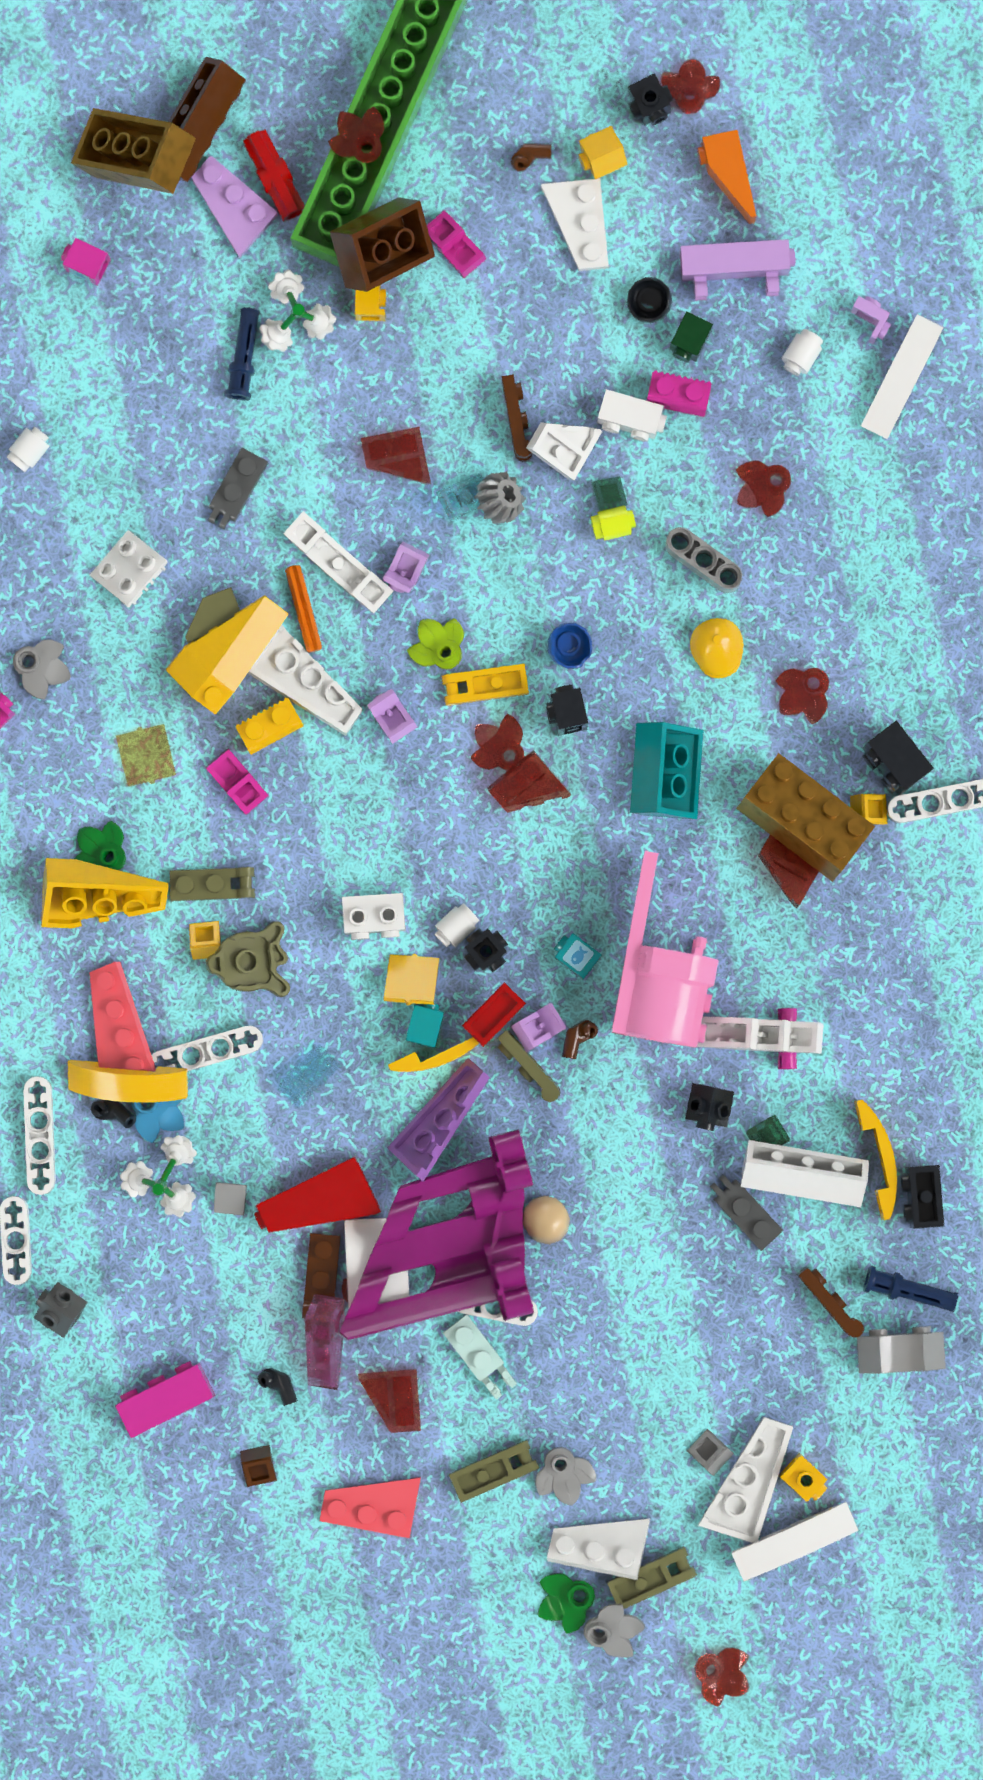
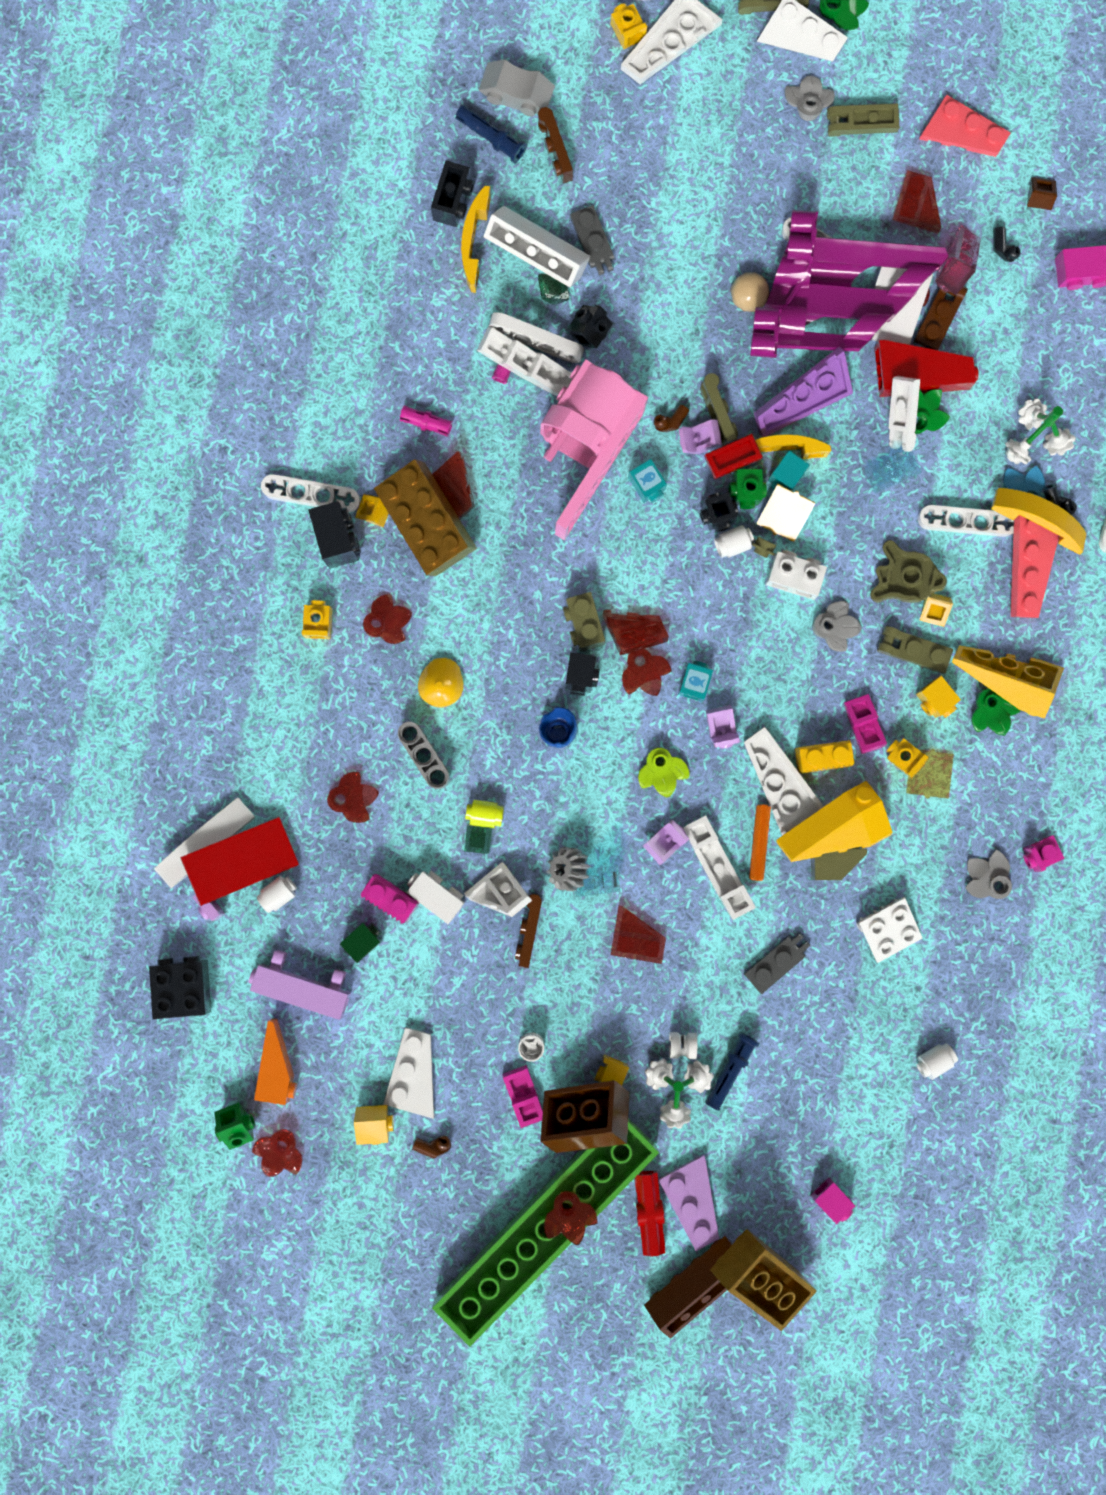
camera: 165 degrees left, 0 degrees up
(167, 838) = (938, 698): none -> yellow brick
(168, 762) = (908, 767): none -> yellow brick
(230, 1198) = (989, 401): light grey slope -> none
(298, 1159) = (927, 412): none -> green plate
(299, 363) = (689, 1045): none -> white wheel
(303, 879) = (840, 626): none -> light grey plate
(323, 1138) = (903, 412): none -> white hinge
(421, 932) = (763, 547): none -> olive plate
(439, 755) = (695, 681): none -> brick
(462, 294) = (528, 1049): none -> white wheel
(472, 997) = (747, 487): none -> green brick
(477, 1353) = (840, 209): light aqua hinge -> none
(486, 684) = (636, 724): yellow plate -> none
(585, 771) = (585, 622): none -> olive brick
(650, 100) = (312, 1162): black brick -> none
(652, 293) = (378, 991): black hair -> none
(666, 770) = (520, 599): teal slope -> none
(710, 1452) = (691, 74): light grey slope -> none
(747, 95) = (234, 1126): none -> green brick
(763, 1067) = (537, 338): none -> white beam
(850, 931) = (426, 421): none -> dark pink pin
(855, 370) = (239, 861): none -> red tile
(864, 214) = (180, 988): none -> black brick
(868, 655) = (318, 629): none -> yellow brick

